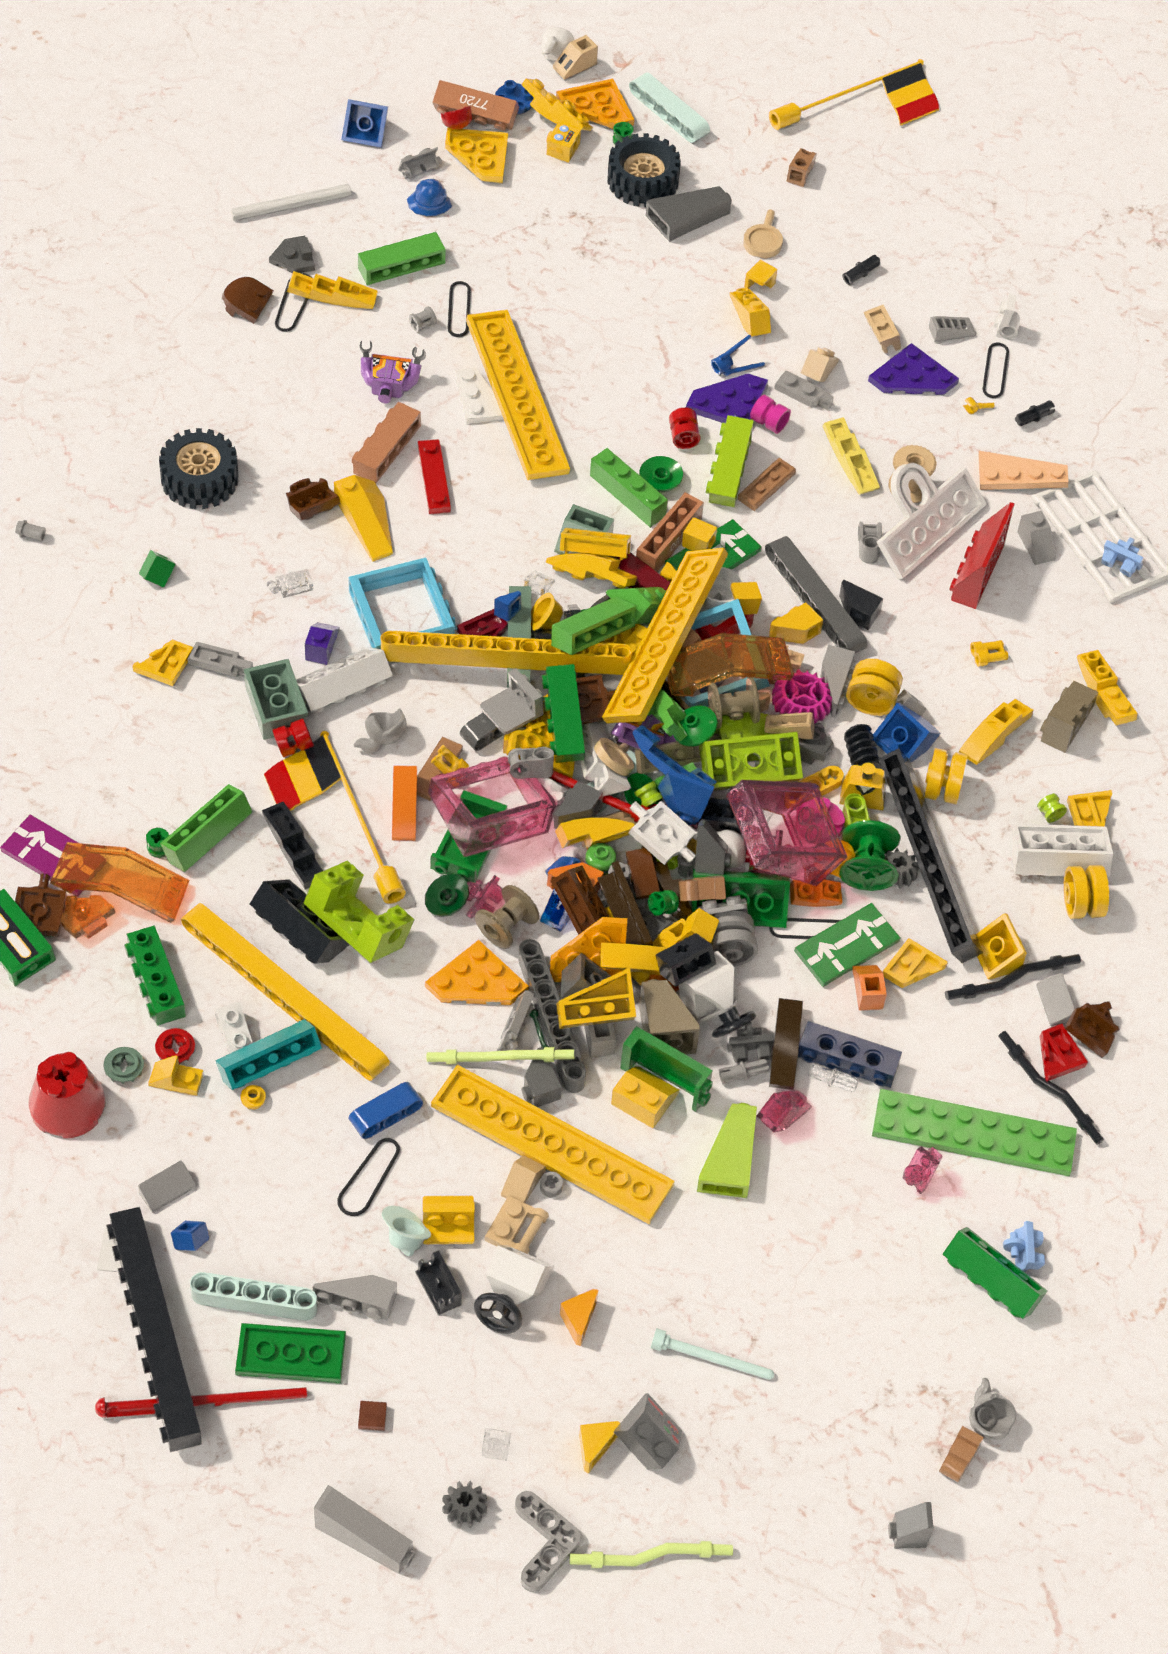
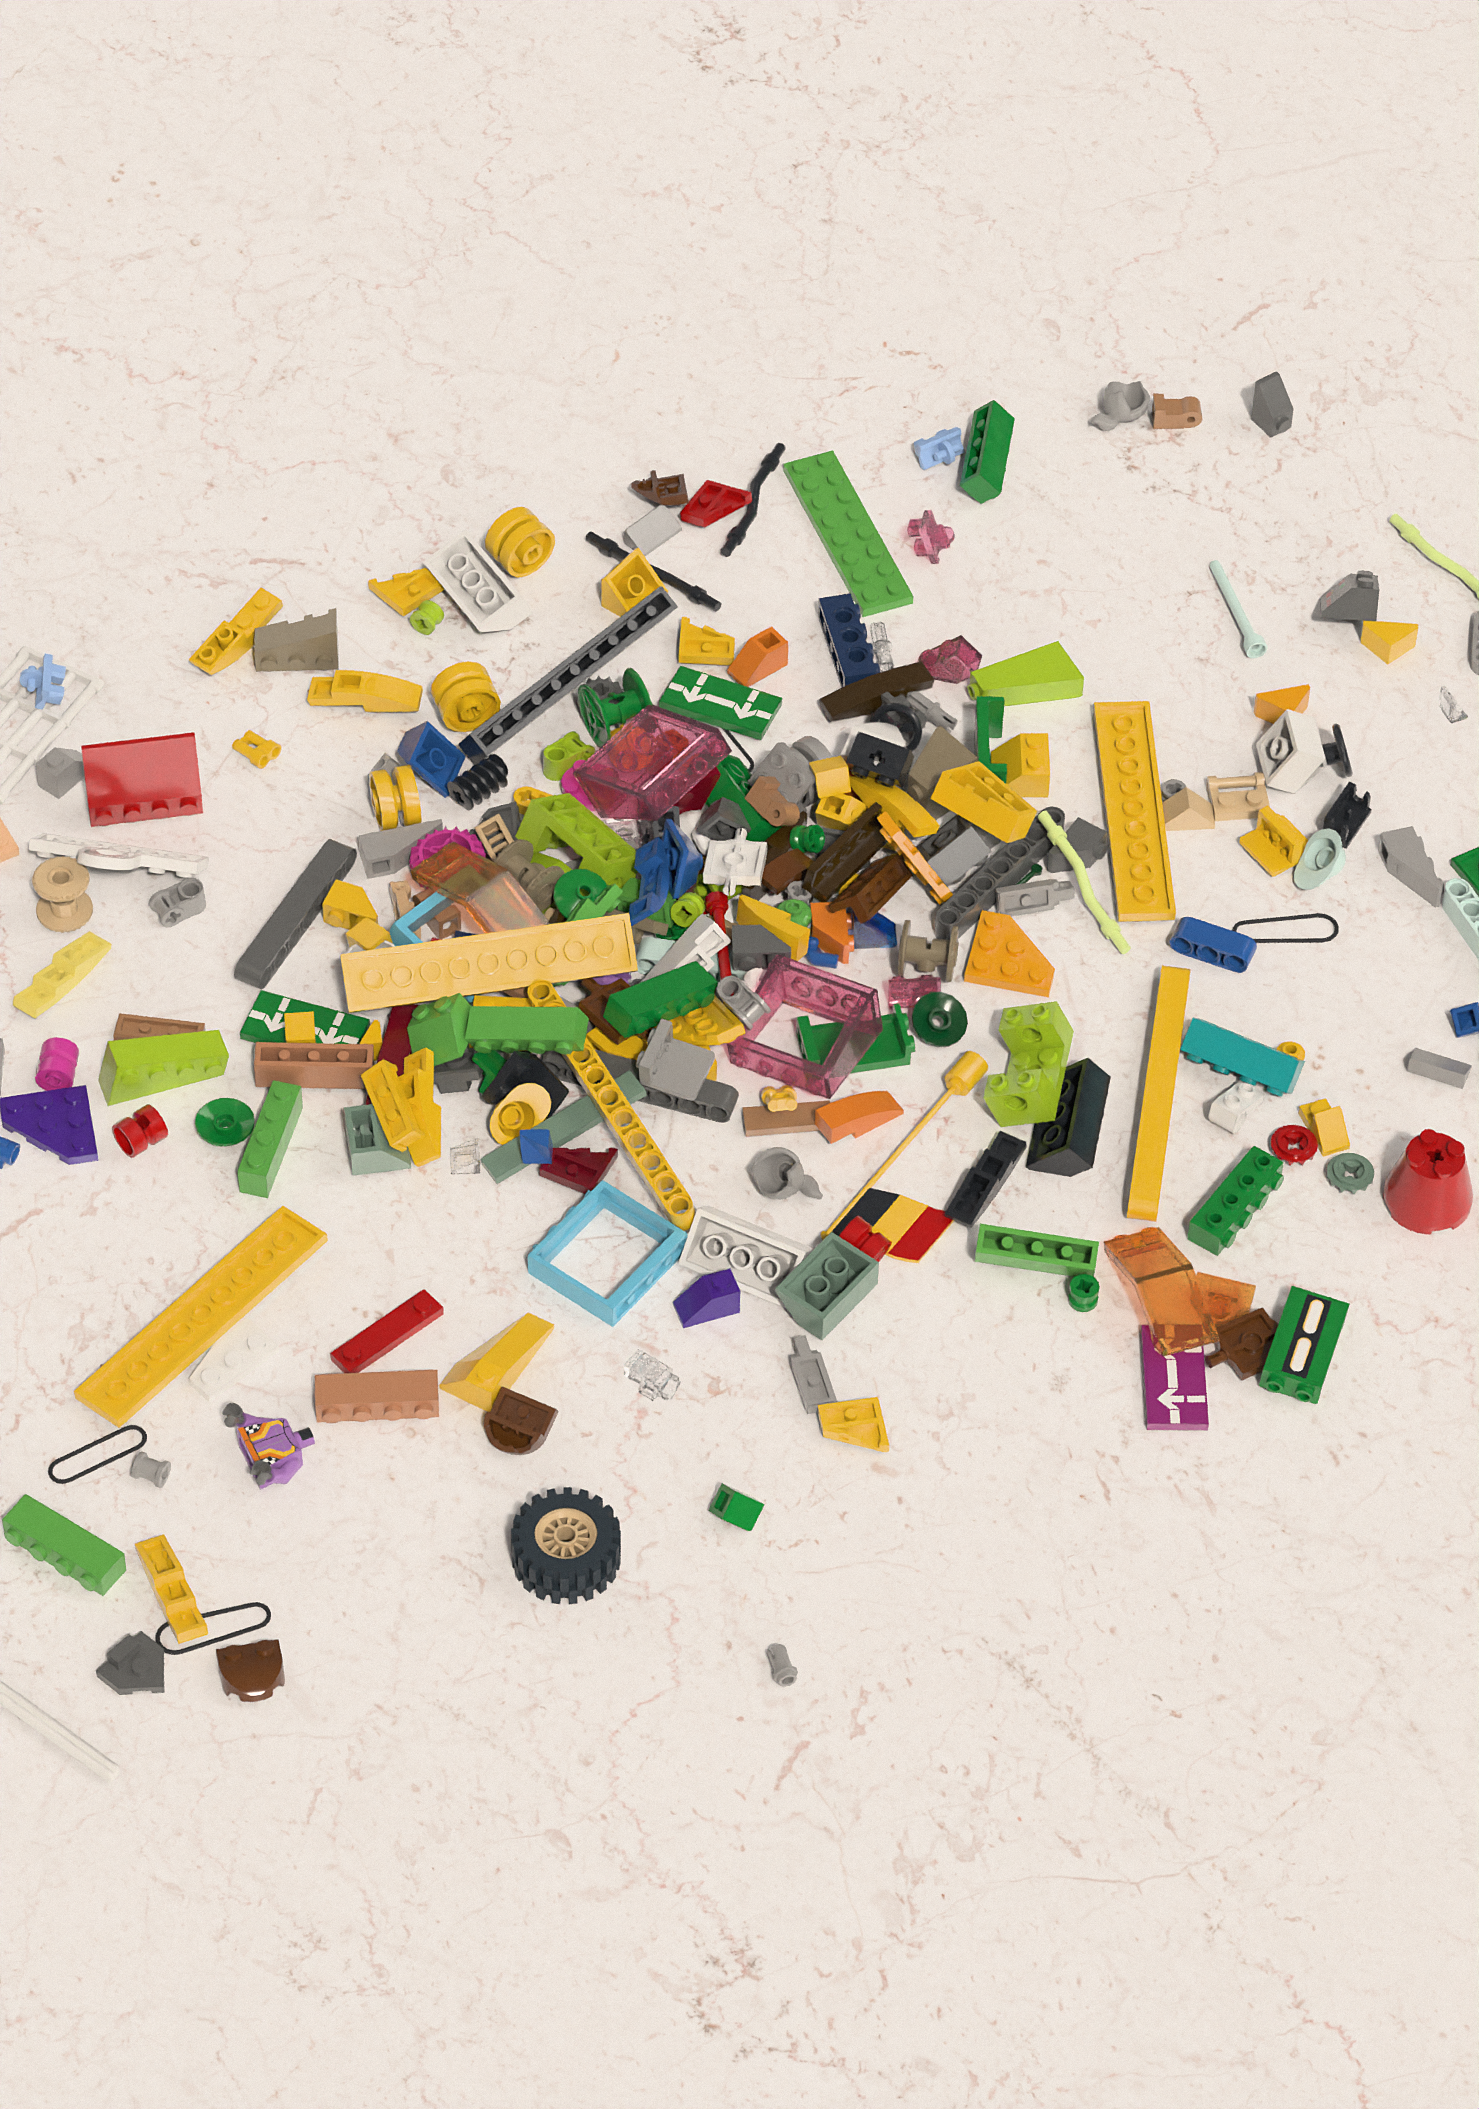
camera: 120 degrees left, 5 degrees down
(614, 756) = (670, 947): tan piece -> none
(860, 604) = (282, 869): black slope -> none
(867, 782) = (524, 751): yellow torso -> none

